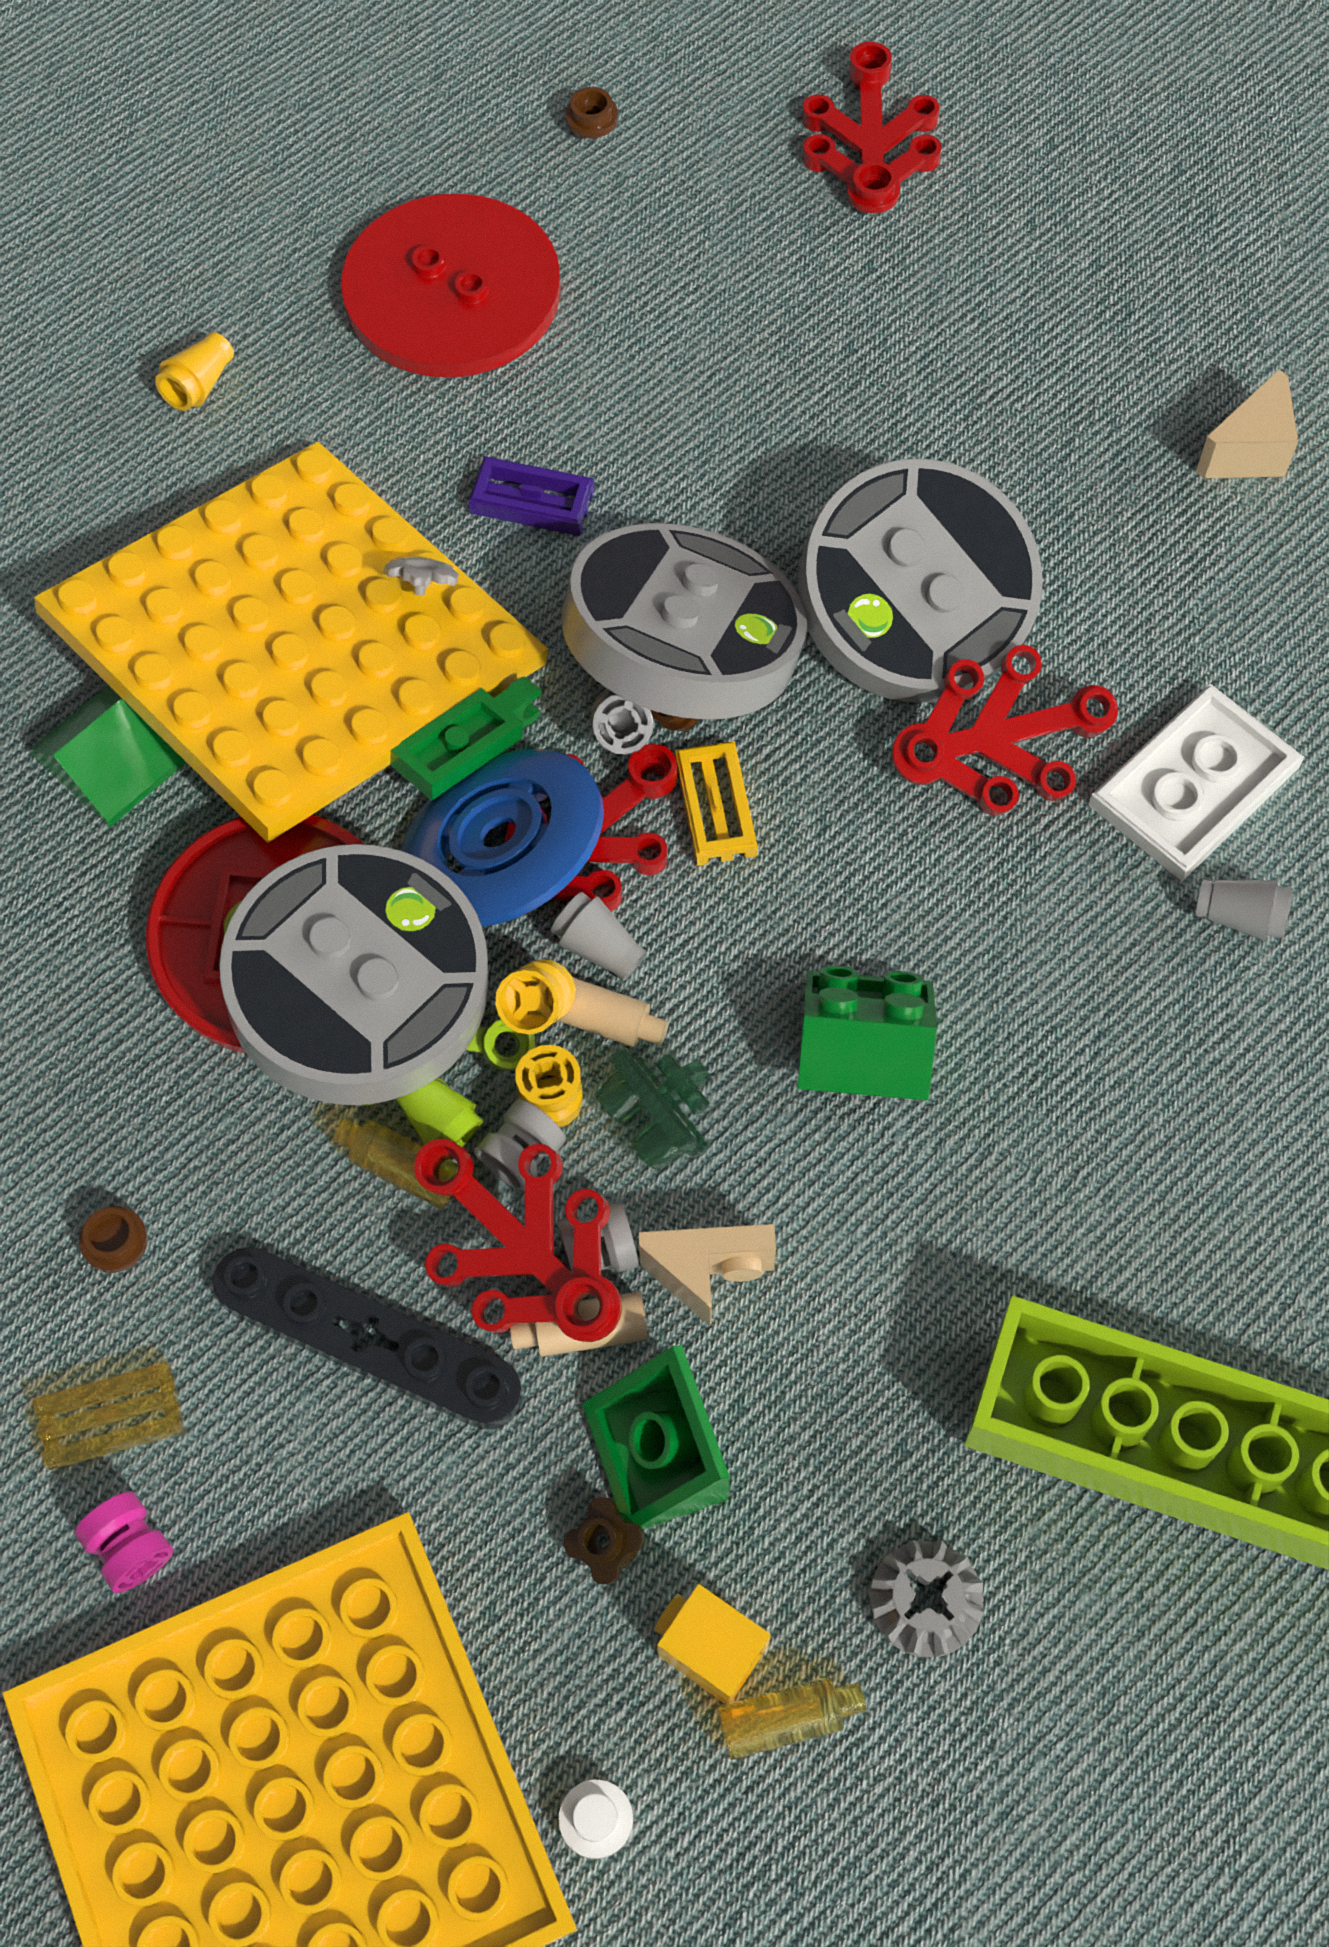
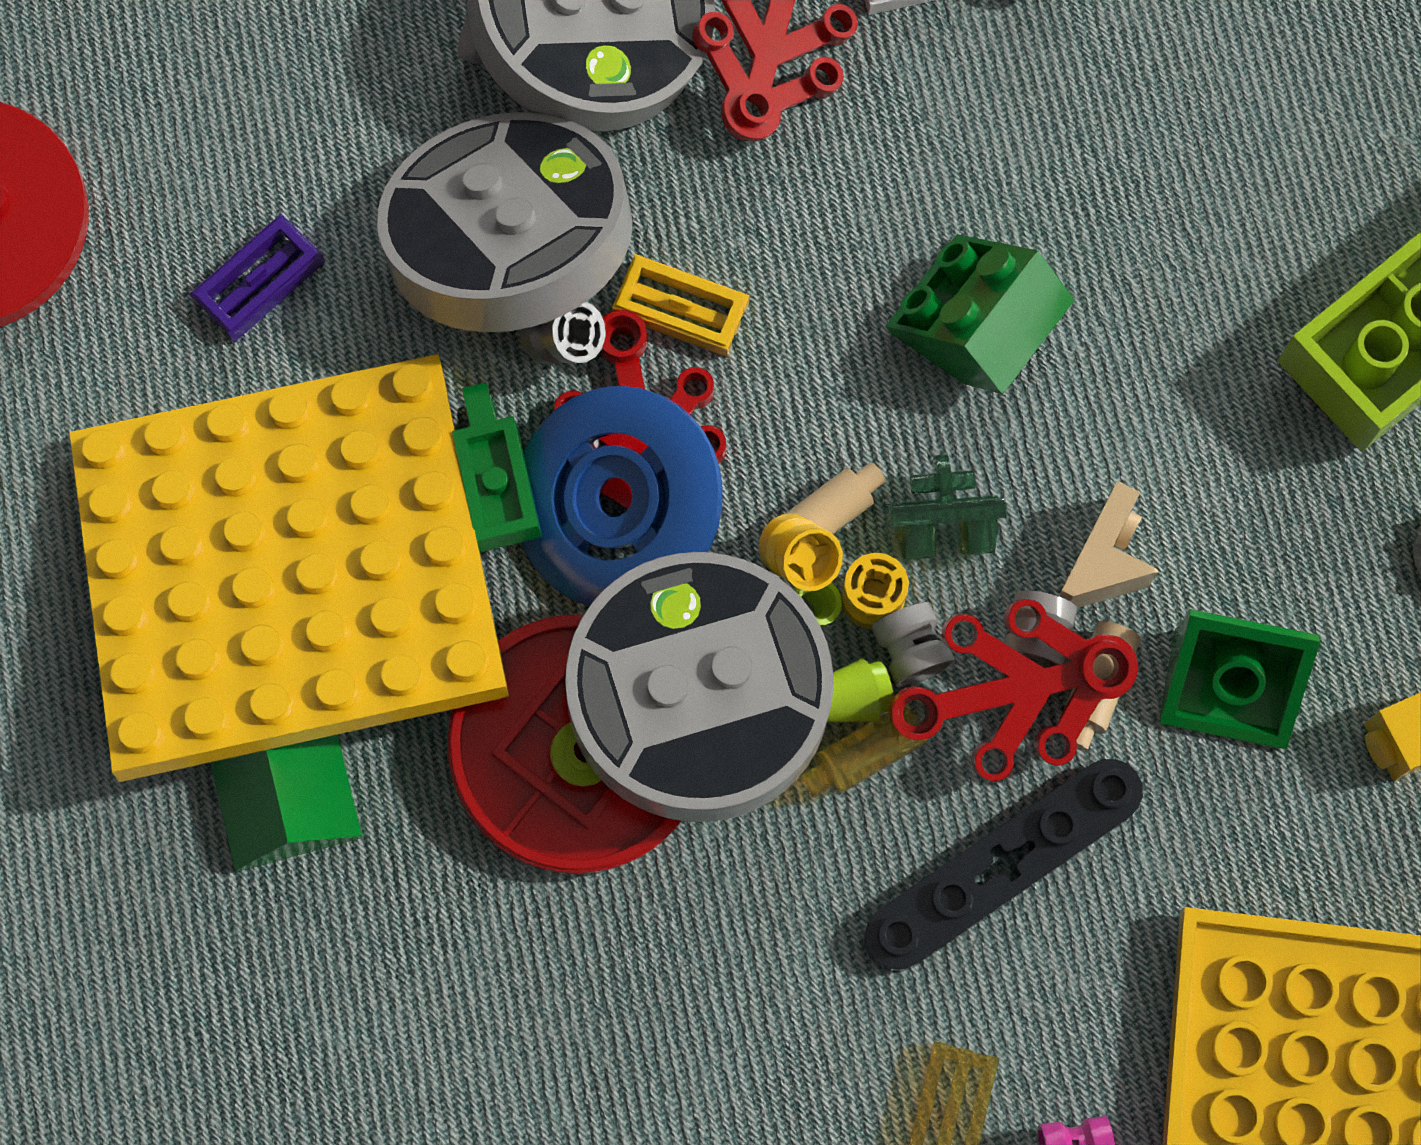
camera: 60 degrees left, 10 degrees up
(113, 1239) = (790, 1032): reddish brown plate -> none
(421, 572) = (307, 411): light grey plant -> none
(597, 936) = (758, 472): light grey cone -> none
(624, 1541) = (1275, 756): dark brown plate -> none

